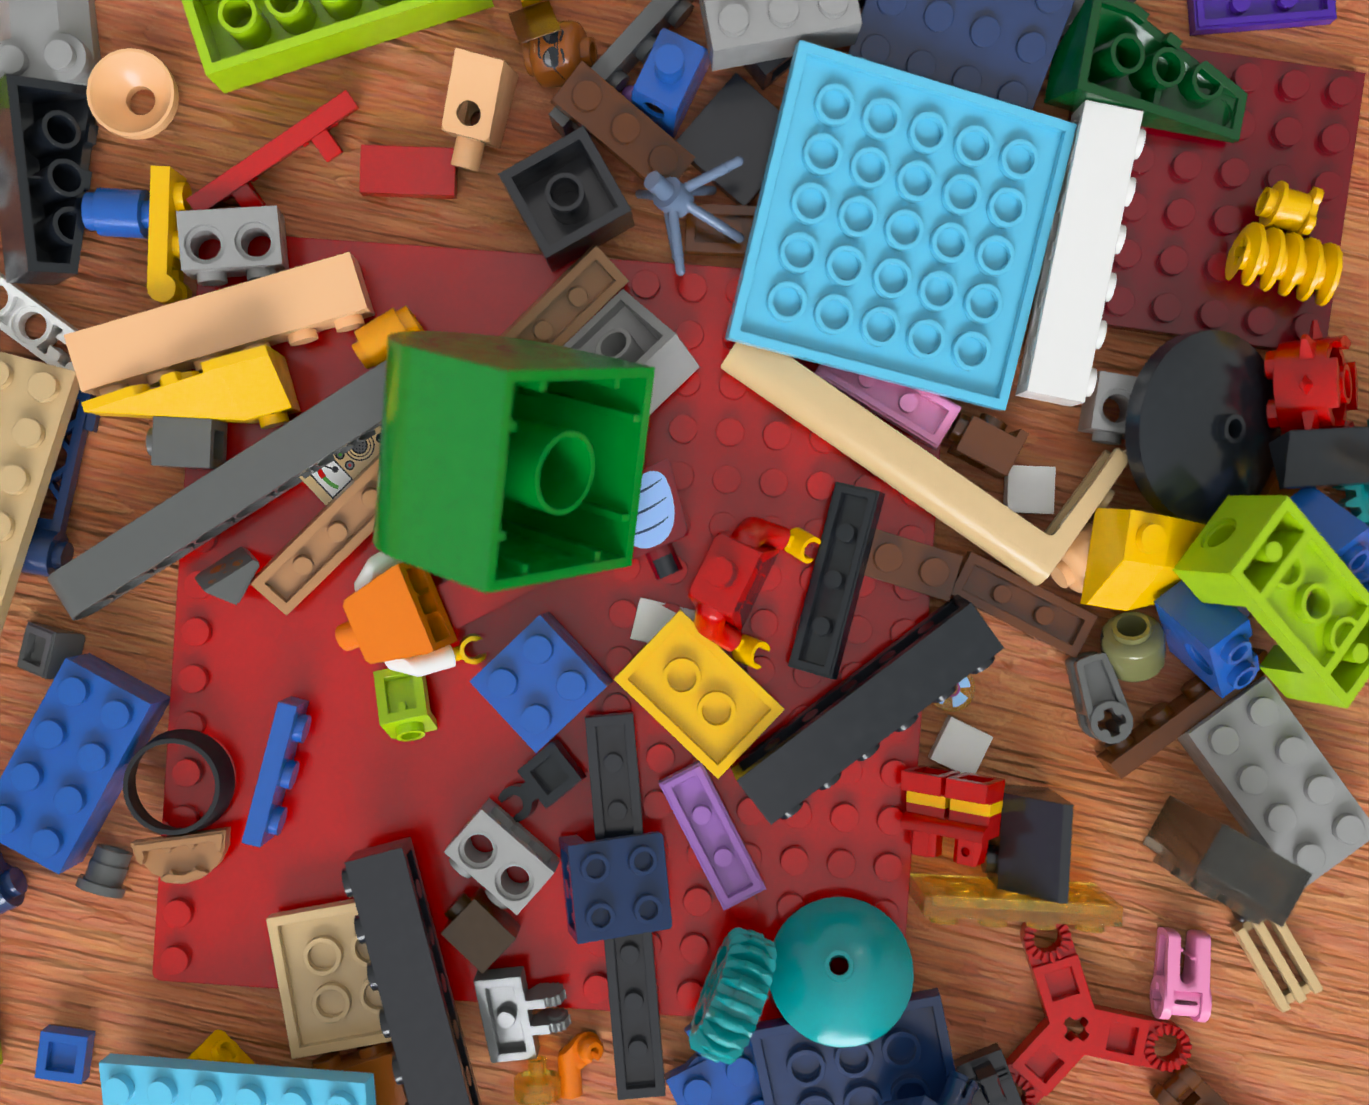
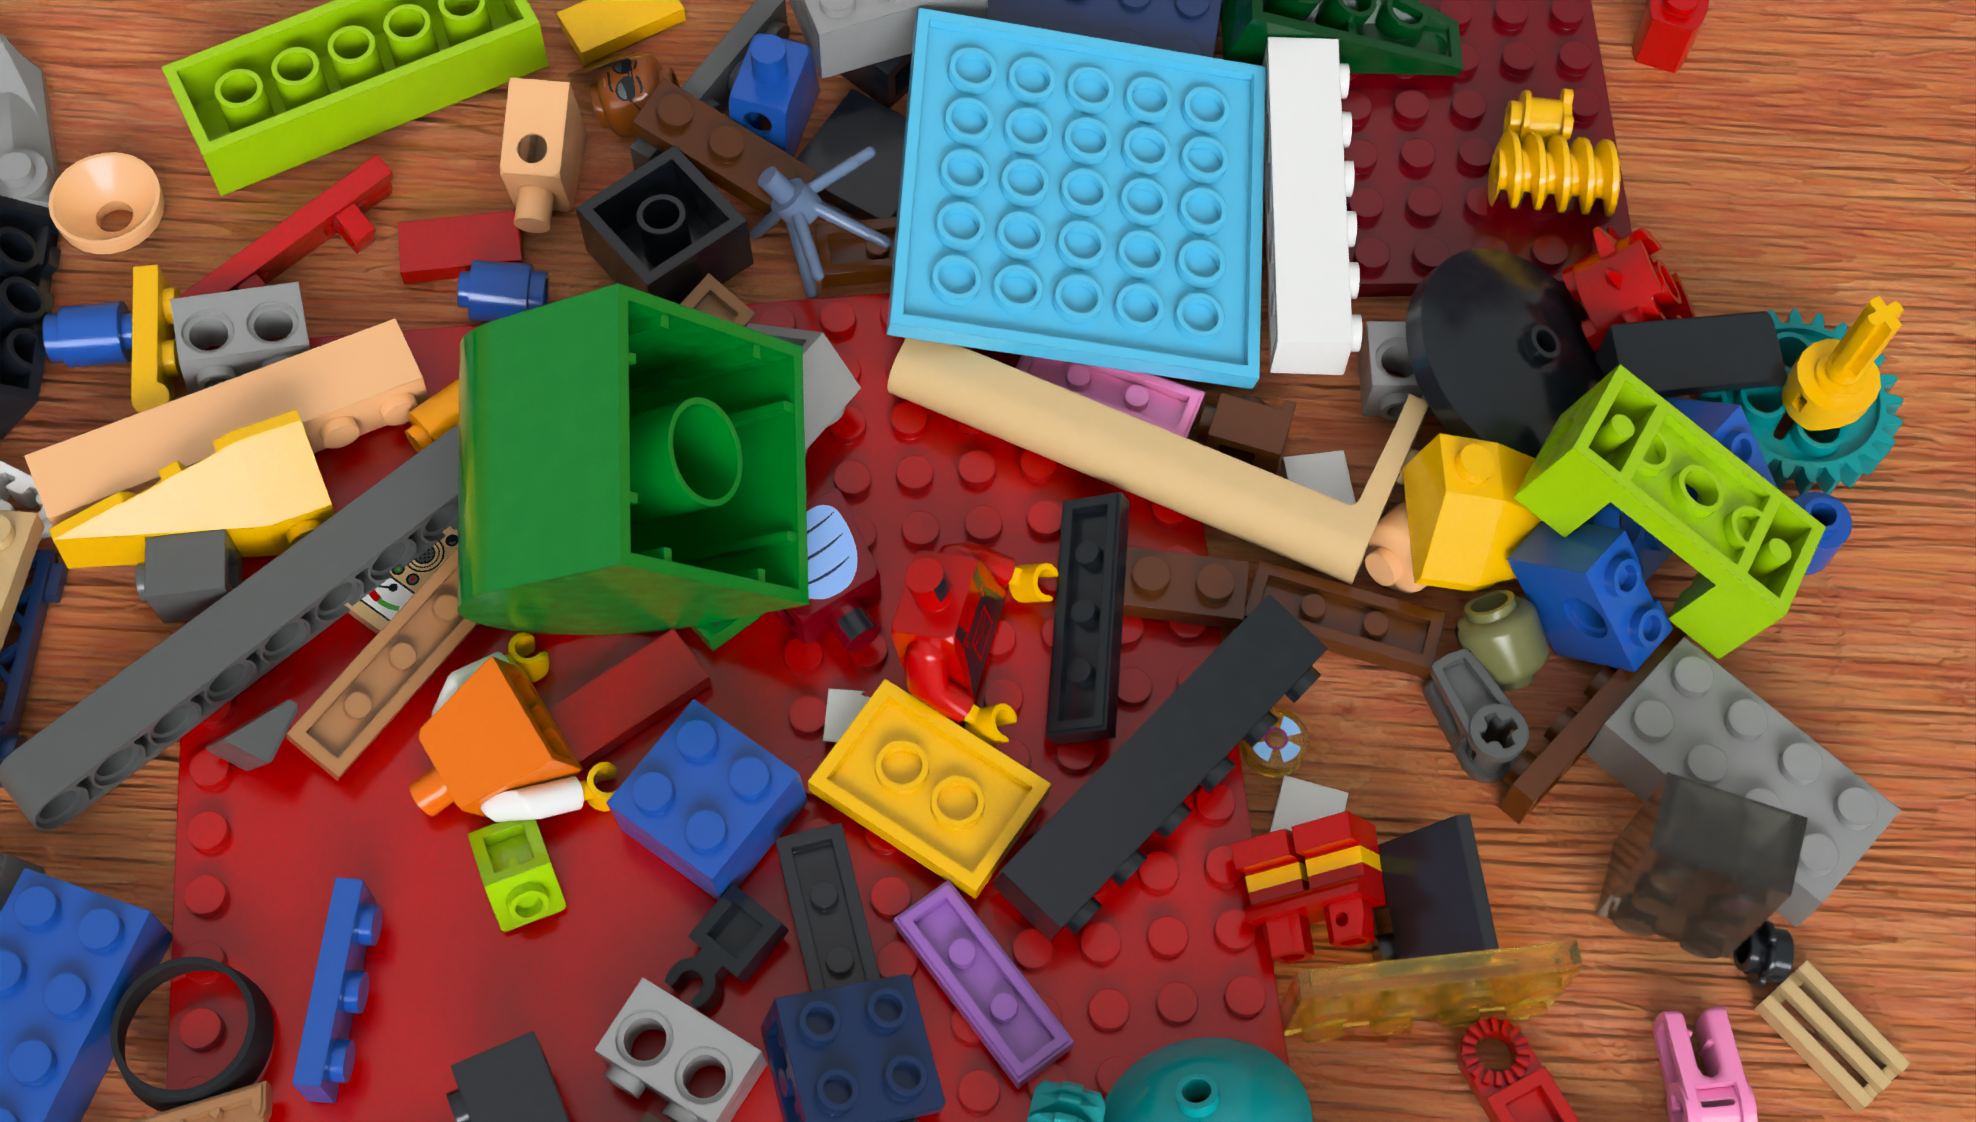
camera: 10 degrees left, 25 degrees down
(437, 224) = (501, 289): none -> blue brick

